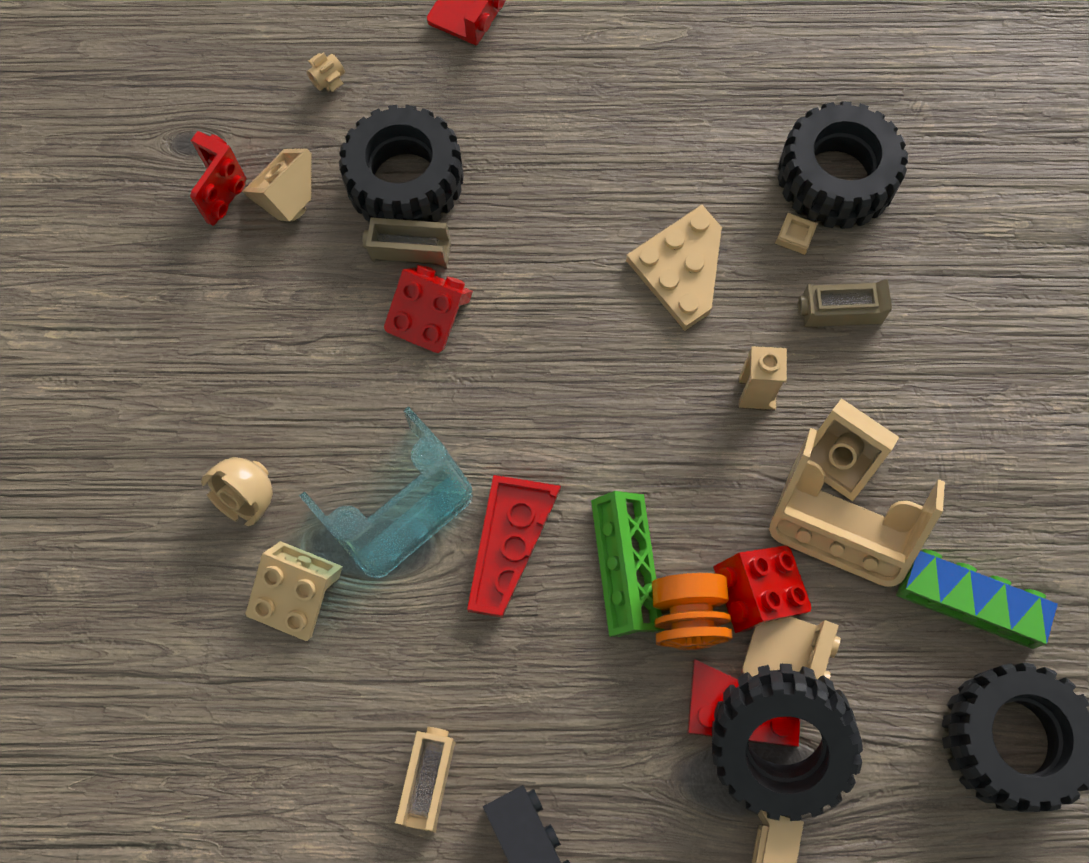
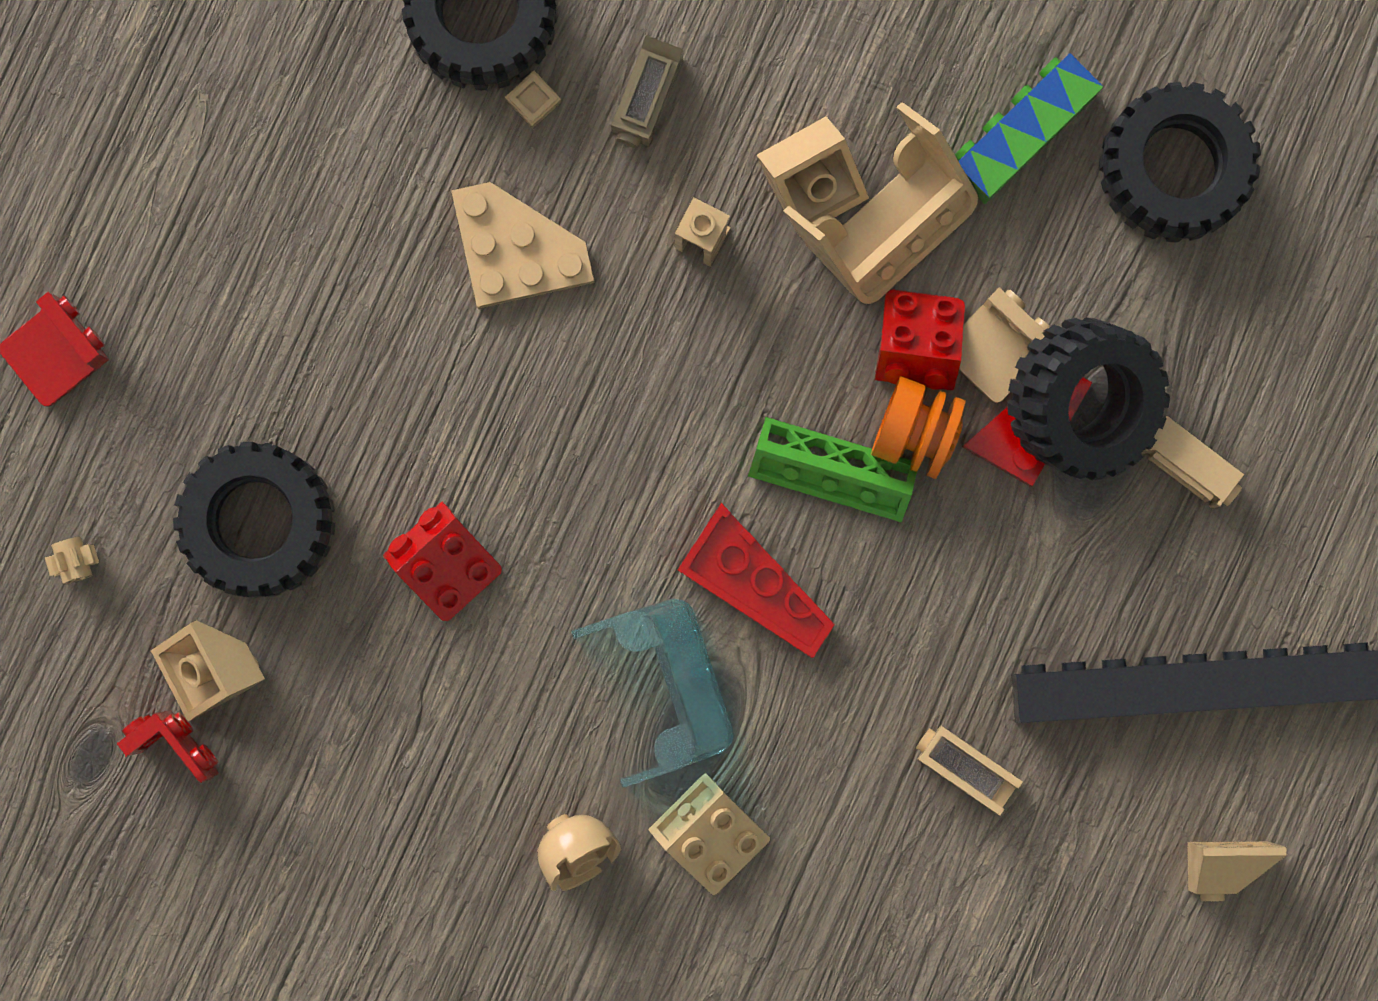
camera: 70 degrees left, 15 degrees up
(408, 241) = (350, 552): dark tan window -> none

